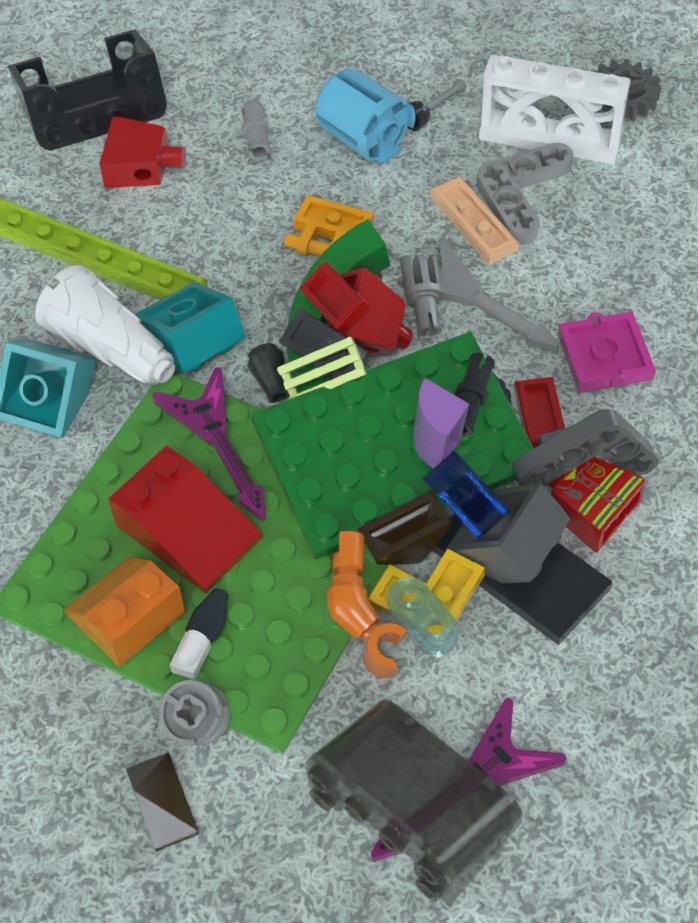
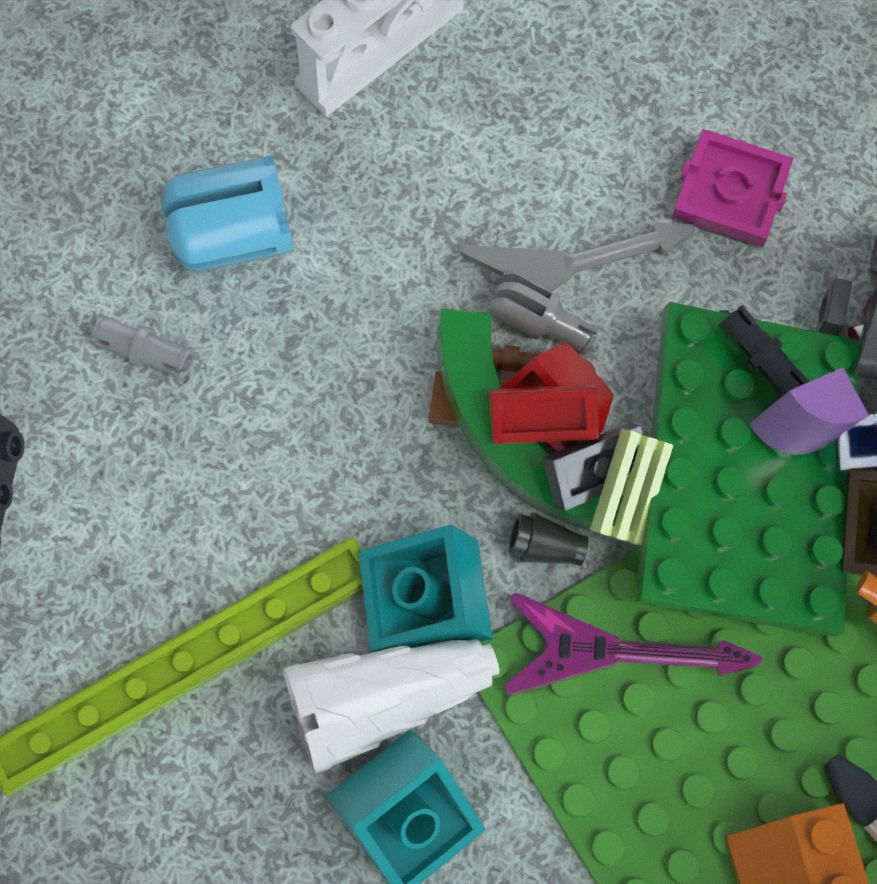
camera: 65 degrees left, 15 degrees up
(137, 154) = (87, 505): red torso -> none
(183, 519) = (720, 749): red slope -> none
(324, 220) = (359, 346): light orange plate -> none
(422, 111) = (245, 148): hinge -> none
(474, 220) = (452, 198): light nougat tile -> none
(538, 407) = (766, 296): red tile -> none
(557, 162) = (421, 125): light grey beam -> none

